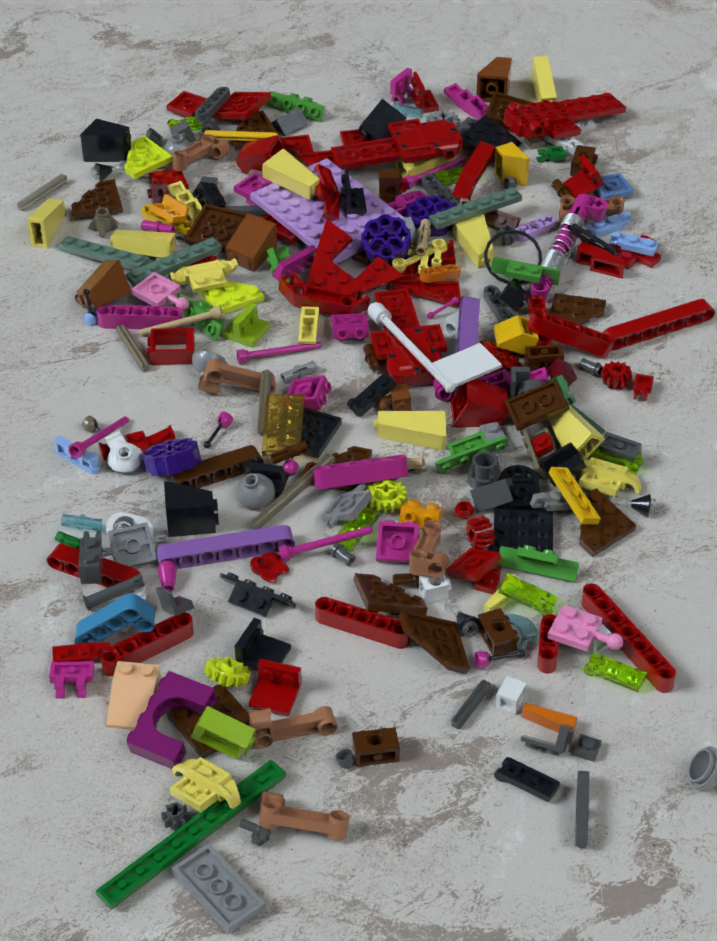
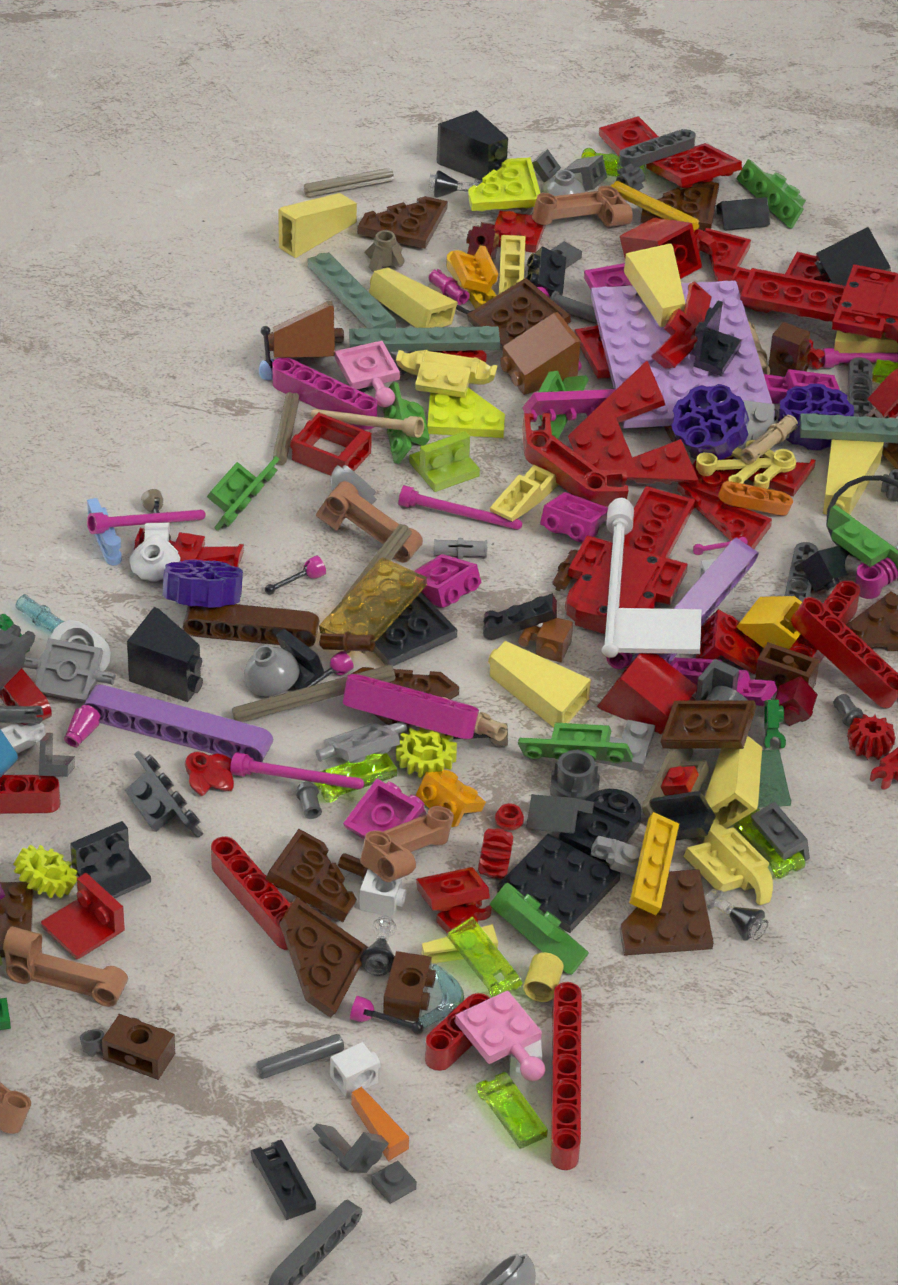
camera: 30 degrees right, 0 degrees up
(138, 395) = (235, 488): none -> bright green bracket
(566, 589) = (543, 977): none -> light yellow piece

